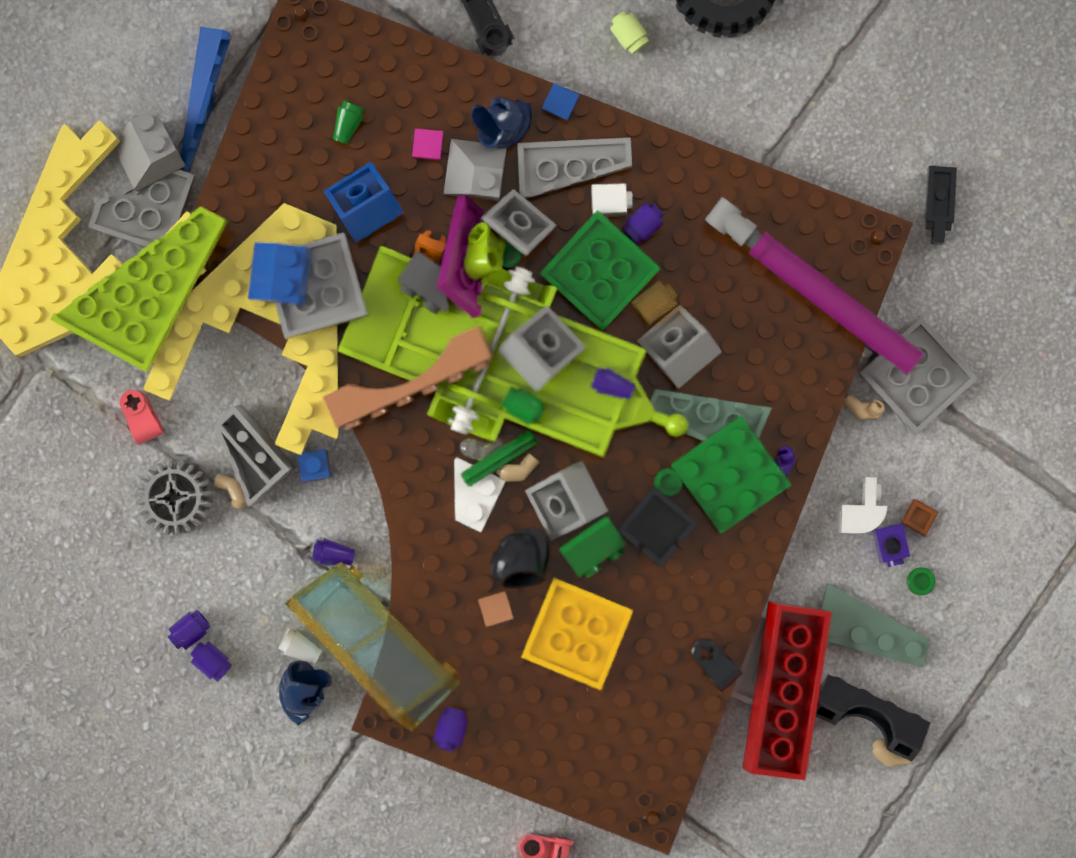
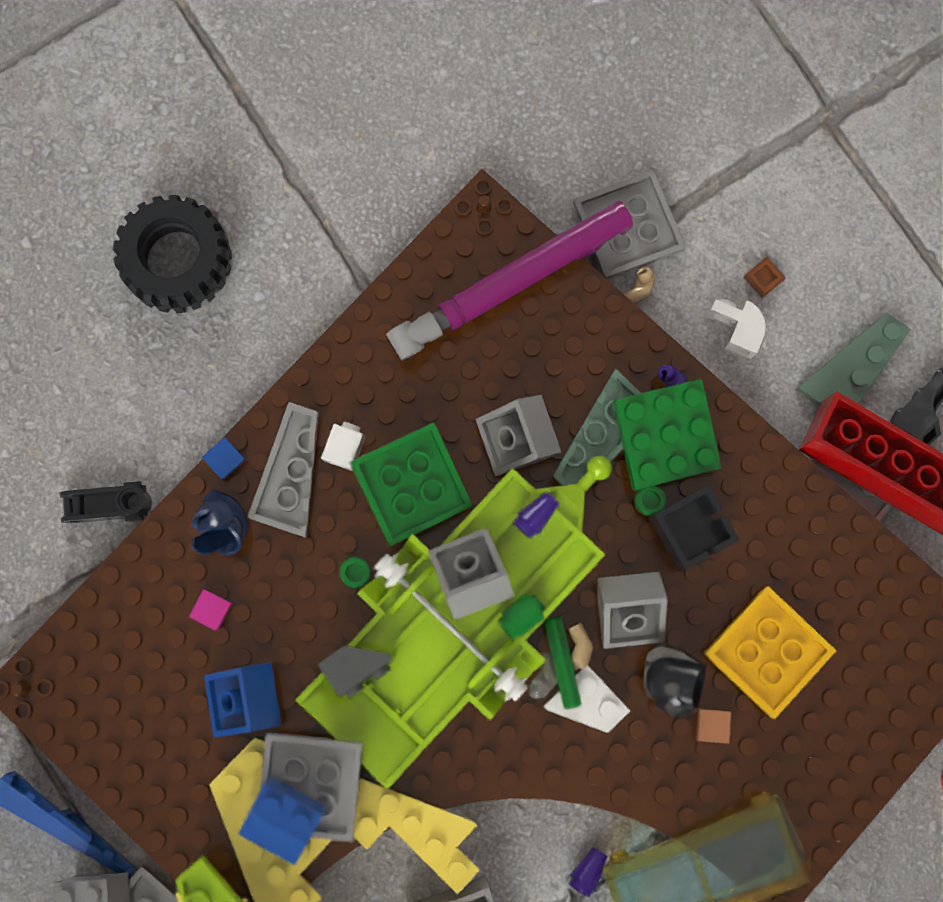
camera: 75 degrees left, 5 degrees down
(314, 465) = (492, 856): blue brick -> none
(347, 120) = (152, 684): green cone -> none
(430, 247) = (318, 648): orange tile -> none
(451, 729) = (824, 822): dark purple brick -> none
(453, 277) = (343, 619): magenta wing -> none
(462, 353) = (448, 788): nougat arch -> none
(474, 170) = (257, 572): light grey slope -> none
(483, 252) = (346, 595): lime piece -> none
(518, 222) = (329, 547): light grey slope -> none
(593, 547) = (689, 602): green slope -> none
(629, 32) = (182, 367): yellowish green brick -> none
(643, 223) = (379, 422): dark purple brick -> none
(656, 302) = (465, 441): clear yellow brick -> none
(718, 666) = (851, 524): black piece -> none
(882, 535) = (771, 313): dark purple brick -> none
(920, 581) = (826, 299): green tile -> none
(940, 201) = (470, 139): black hinge -> none

